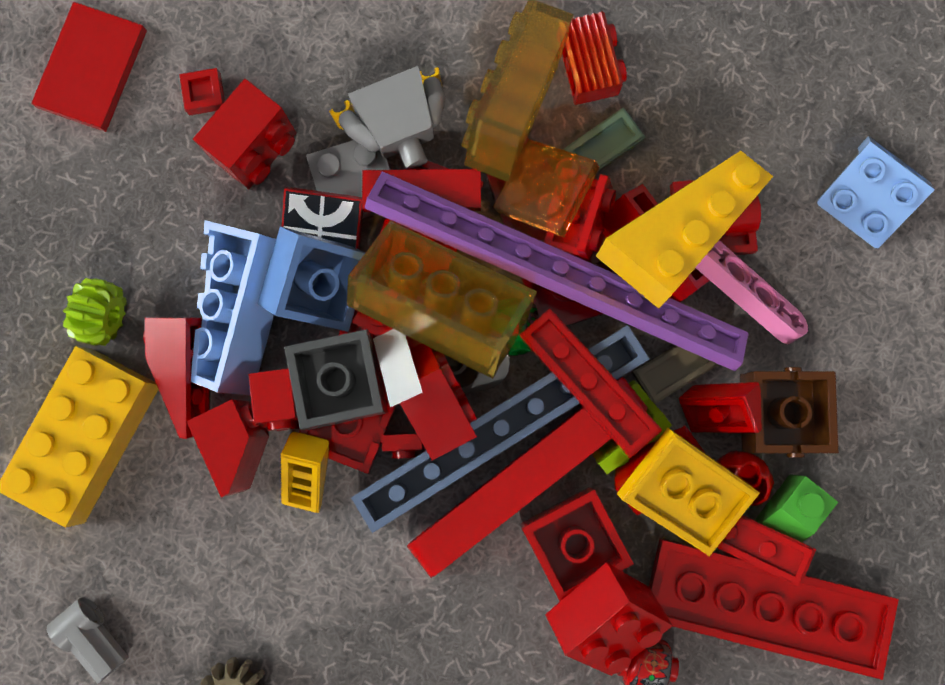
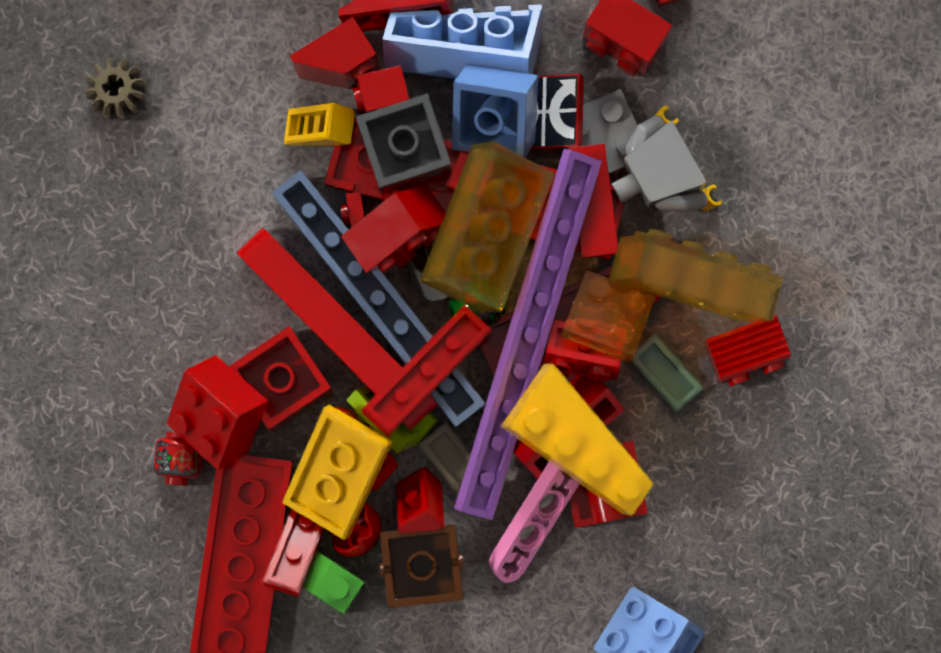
camera: 85 degrees right, 0 degrees up
(397, 367) = (420, 194): white sticker -> none

